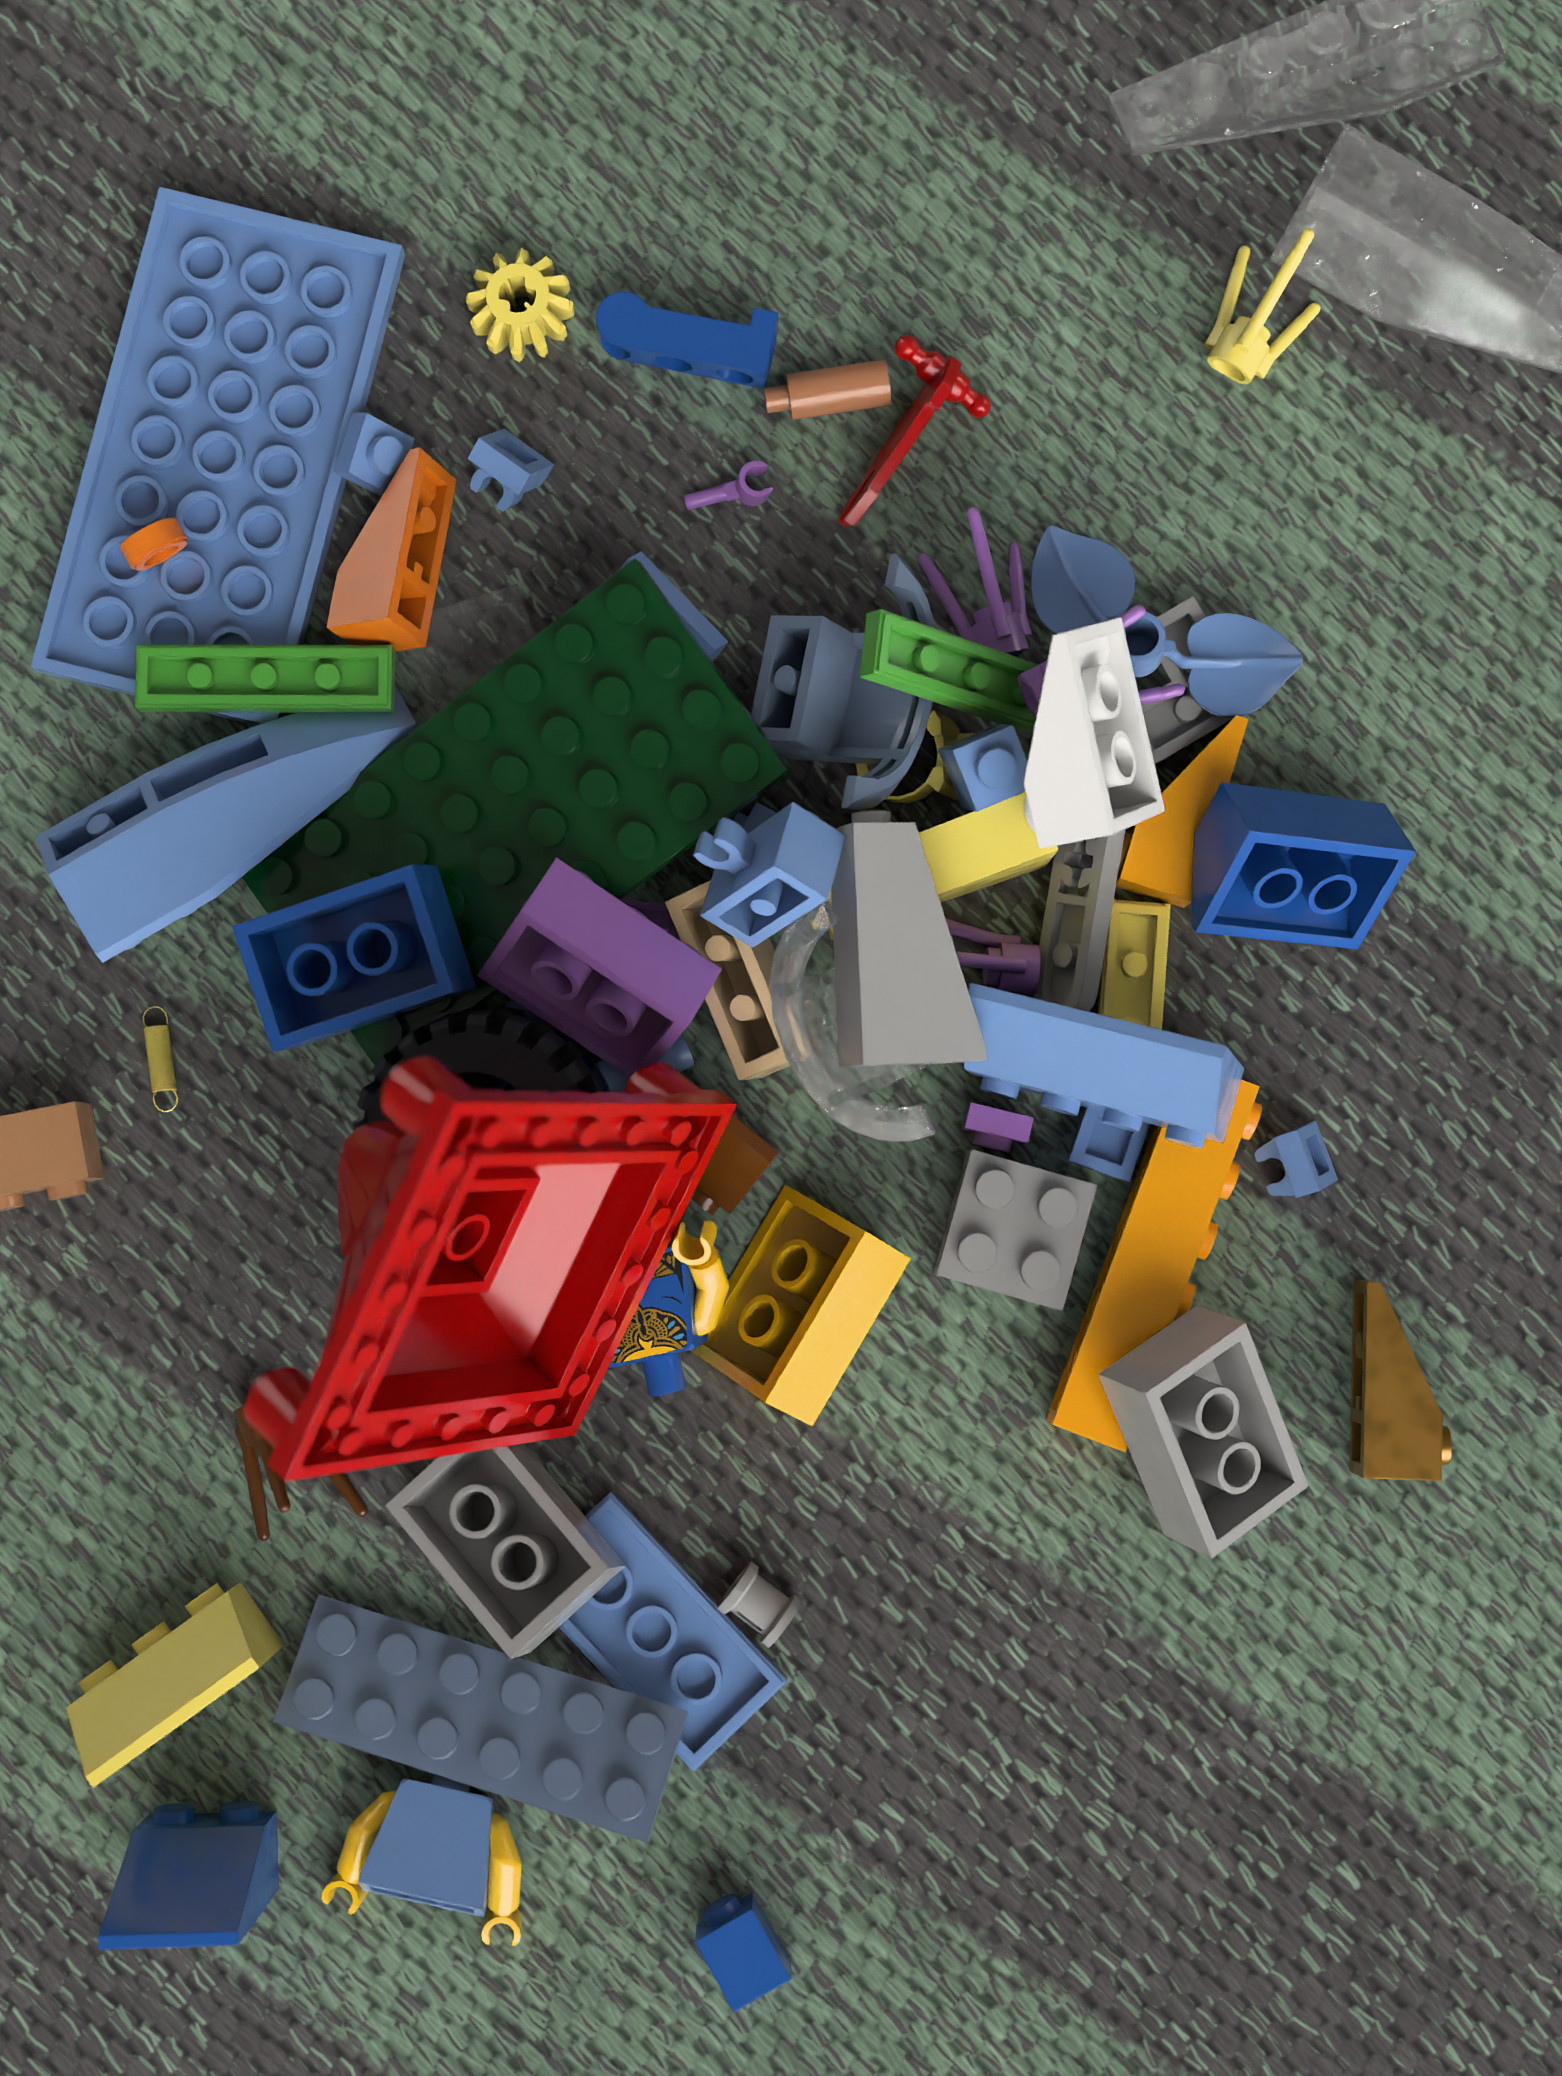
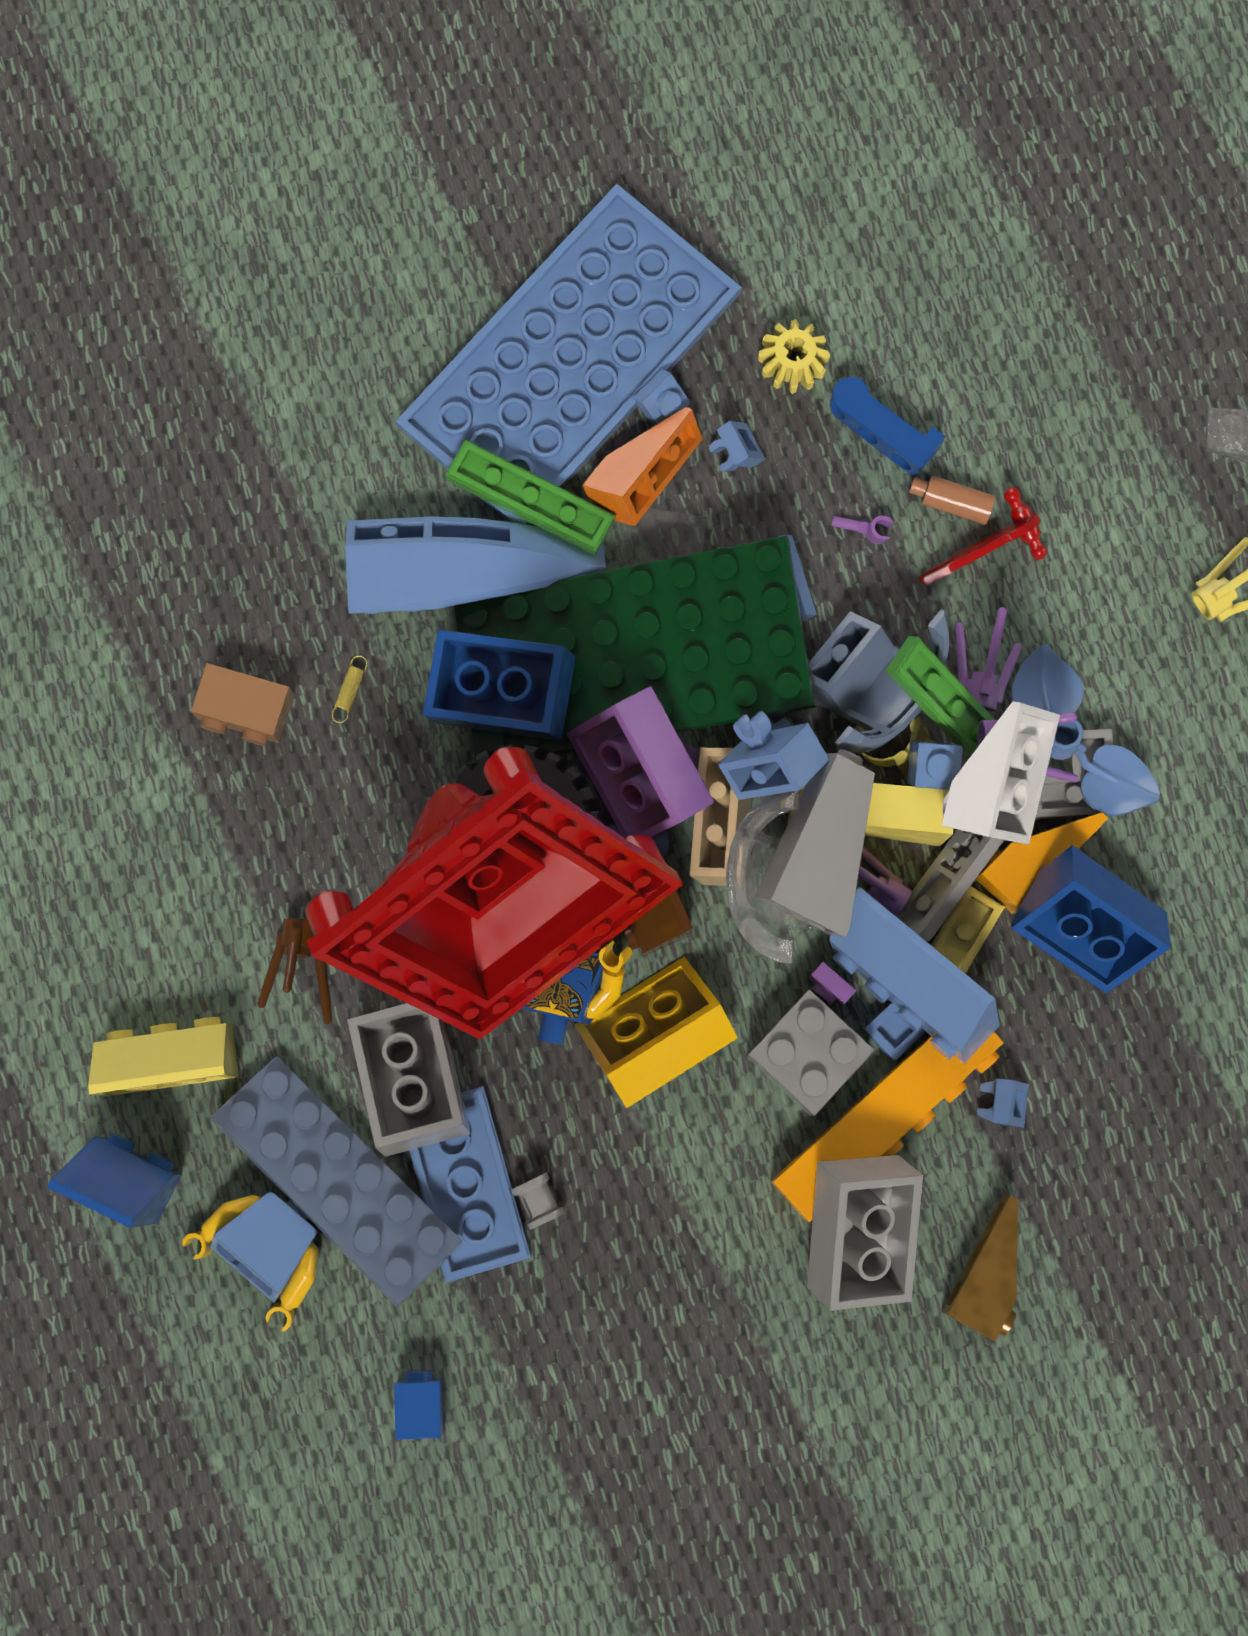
camera: 25 degrees right, 5 degrees down
(154, 544) = (506, 386): orange tile -> none

